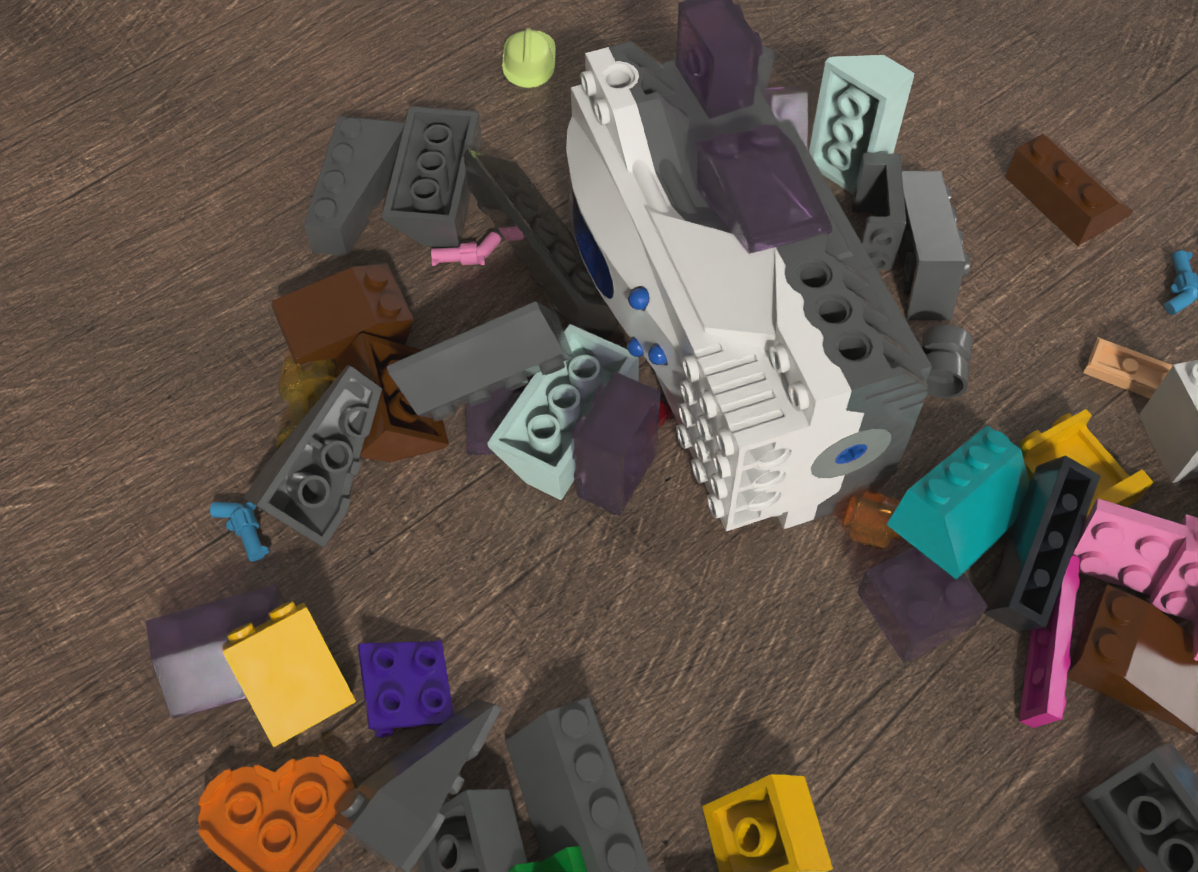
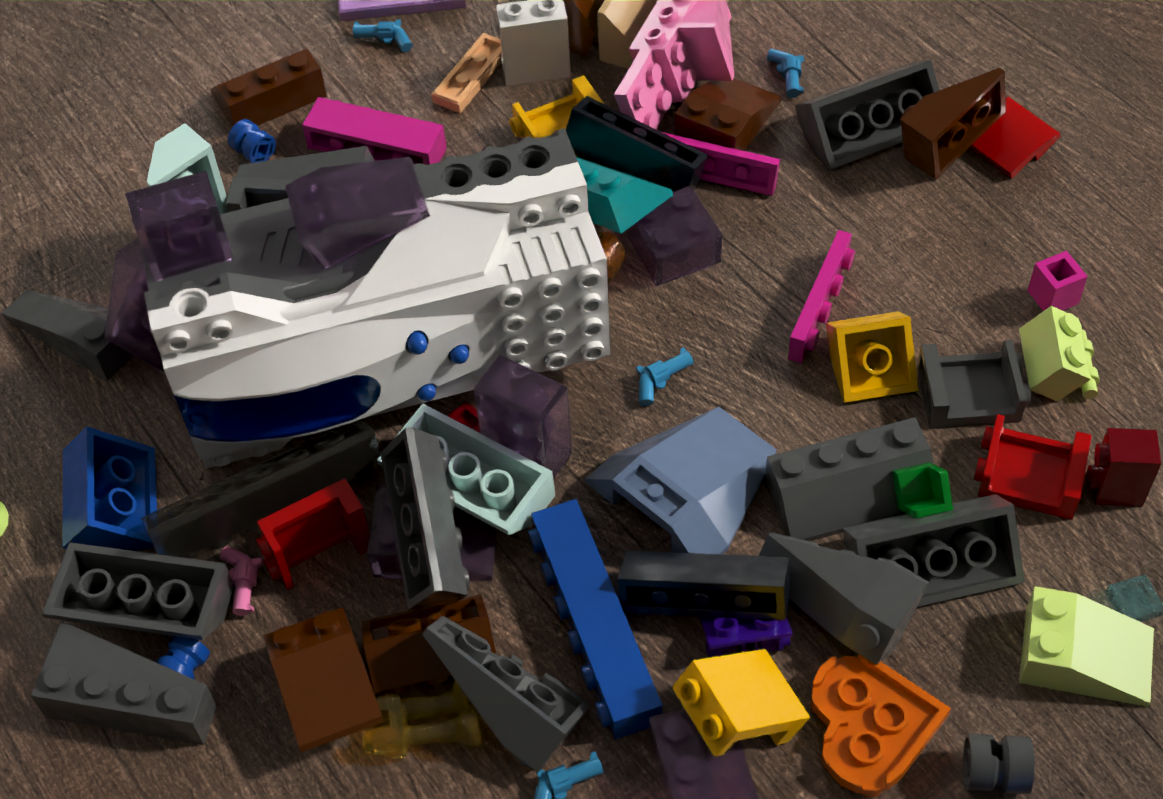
camera: 85 degrees left, 5 degrees down
(370, 219) = (185, 655): none -> blue wheel
(410, 540) = (595, 619): none -> blue brick
(431, 641) = (705, 585): none -> black brick
(483, 265) = (311, 528): none -> red panel
(534, 141) = (107, 491): none -> blue slope
(573, 627) = (690, 479): none -> sand blue wedge
(723, 594) = (658, 373): none -> dark azure piece
(872, 782) = (817, 306): none -> dark pink plate
(986, 183) = (251, 141): none -> blue wheel
(1017, 291) = (341, 126): none -> dark pink brick

